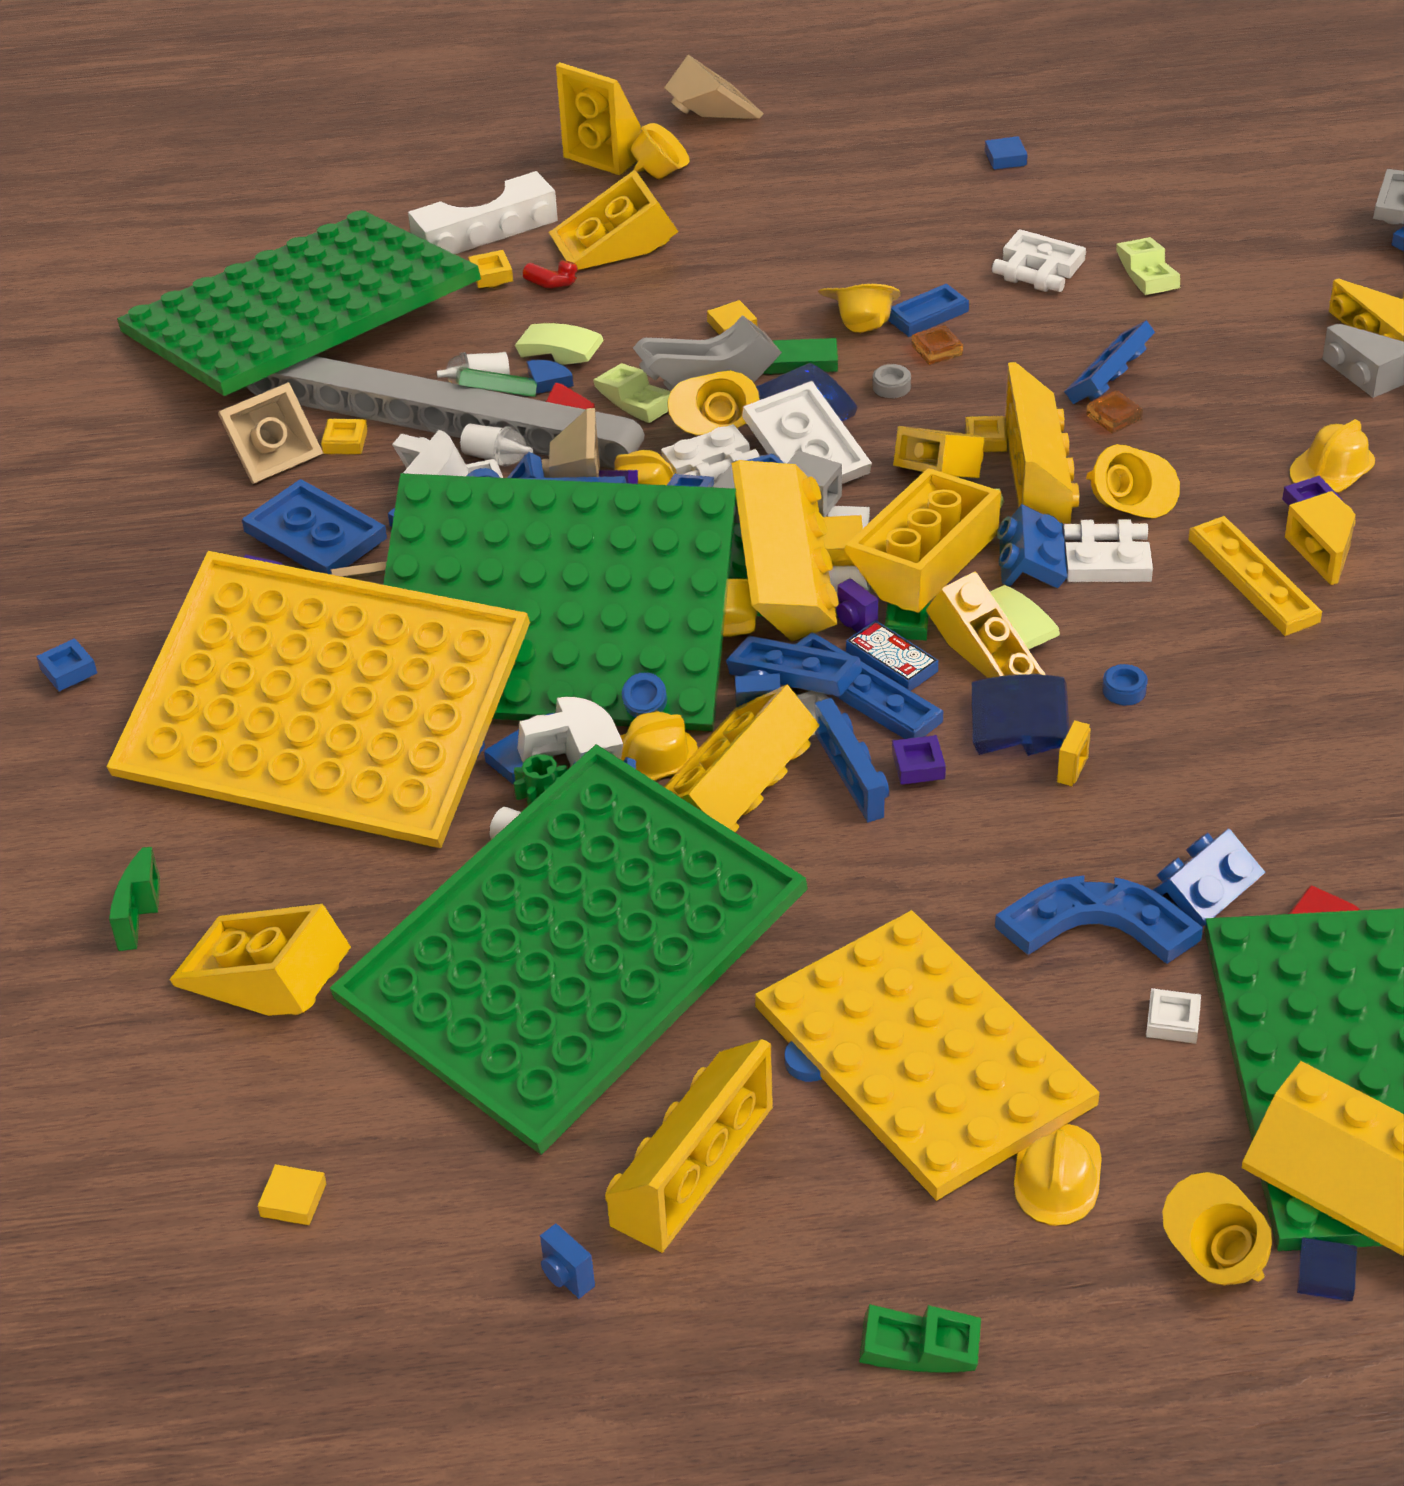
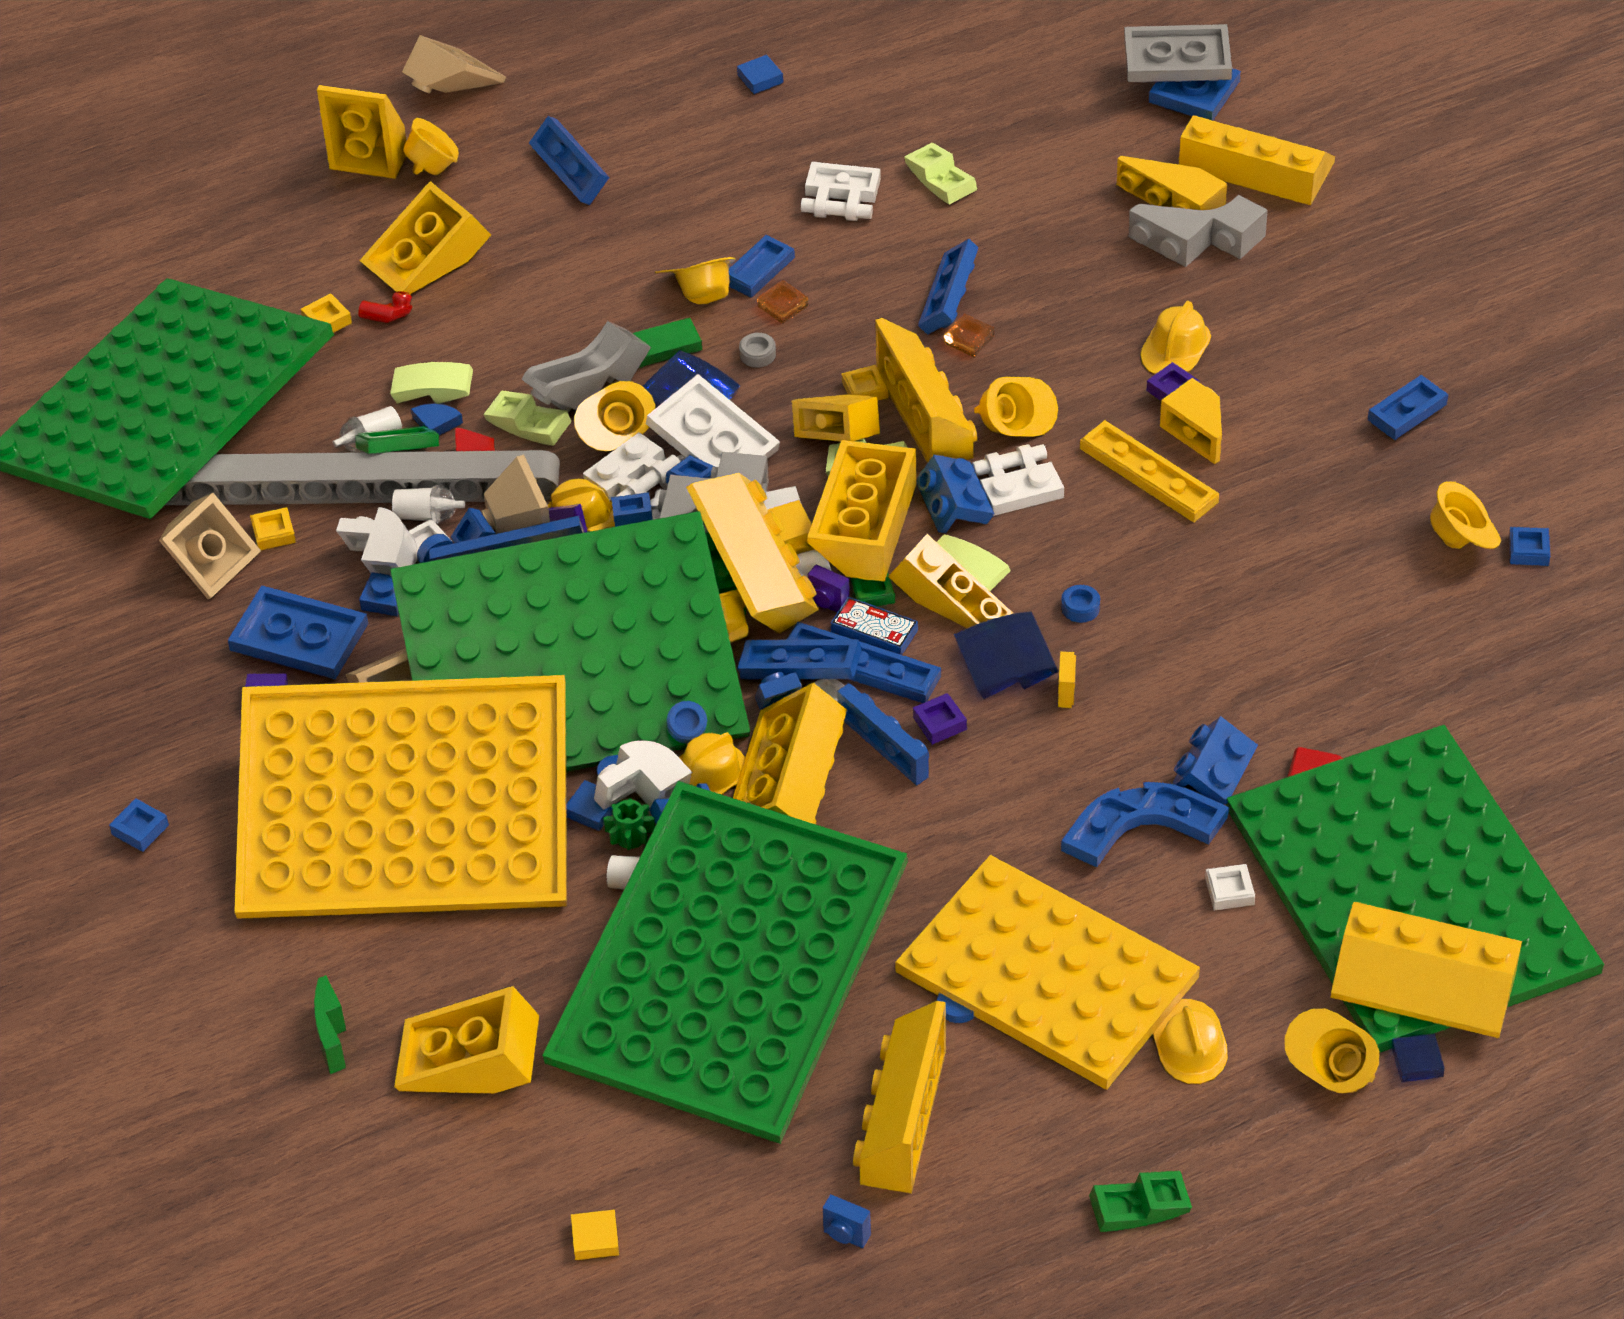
camera: 20 degrees left, 5 degrees up
(522, 206) = (267, 281): white arch -> none
(727, 315) = (582, 318): yellow tile -> none
(784, 186) = (569, 160): none -> blue plate

